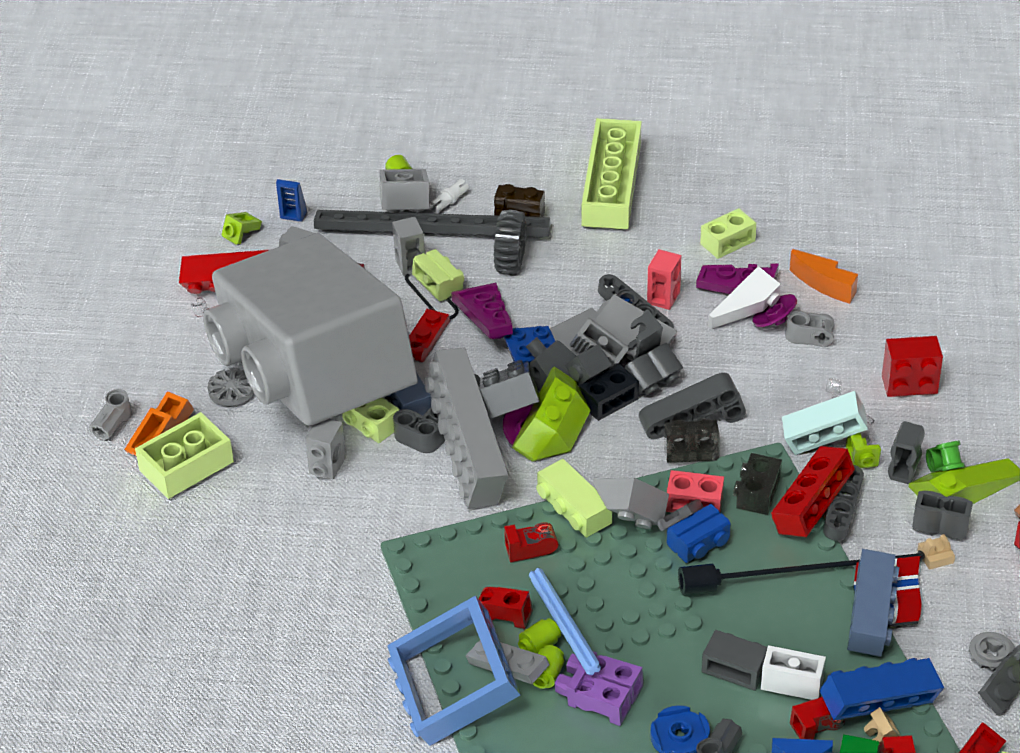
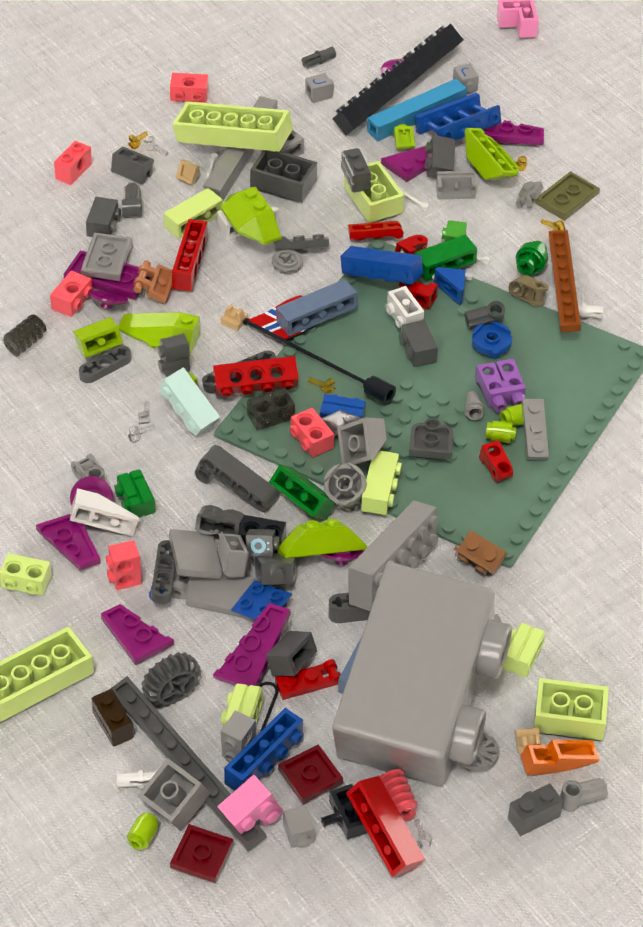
camera: 135 degrees left, 5 degrees up
(136, 373) = (535, 809): none -> dark grey brick
(197, 407) = (527, 737): none -> tan tile
(237, 224) = (314, 887): lime bracket -> none
(282, 476) = (523, 649): none -> yellowish green brick
(286, 206) = (259, 865): blue slope -> none
(339, 217) = (249, 804): none -> bright pink brick
(344, 190) = (201, 853): none -> dark red plate
(381, 252) = (265, 749): none -> blue brick
(413, 516) = (481, 552): none -> medium nougat bracket
(453, 323) = (291, 653): none -> dark grey brick
(474, 705) = (555, 466): medium blue window -> none
(508, 388) = (329, 559): brick -> none
(529, 541) = (435, 484): red leg -> none
(565, 622) = (480, 421): light blue axle -> none
(588, 576) = (431, 440): none -> dark grey plate
(592, 262) = (134, 635): none -> magenta wing
(594, 461) = (345, 484): none -> light grey cylinder
(600, 642) = (473, 406): none -> light grey cone
(625, 443) = (302, 492): none -> green brick
(648, 336) = (209, 523): dark grey hinge -> none
(691, 447) = (263, 458): clear smoke brick -> none
(750, 341) = (135, 493): none -> green brick
(752, 551) = (326, 386): none -> clear yellow hand
(824, 275) = (24, 494): orange slope -> none
(912, 366) = (88, 392): red brick -> none
(942, 514) = (210, 319): dark grey brick -> none
(944, 457) = (152, 339): bright green piece -> none
(962, 411) = (93, 371): none -> dark grey beam
(995, 421) = (97, 337): none -> lime brick

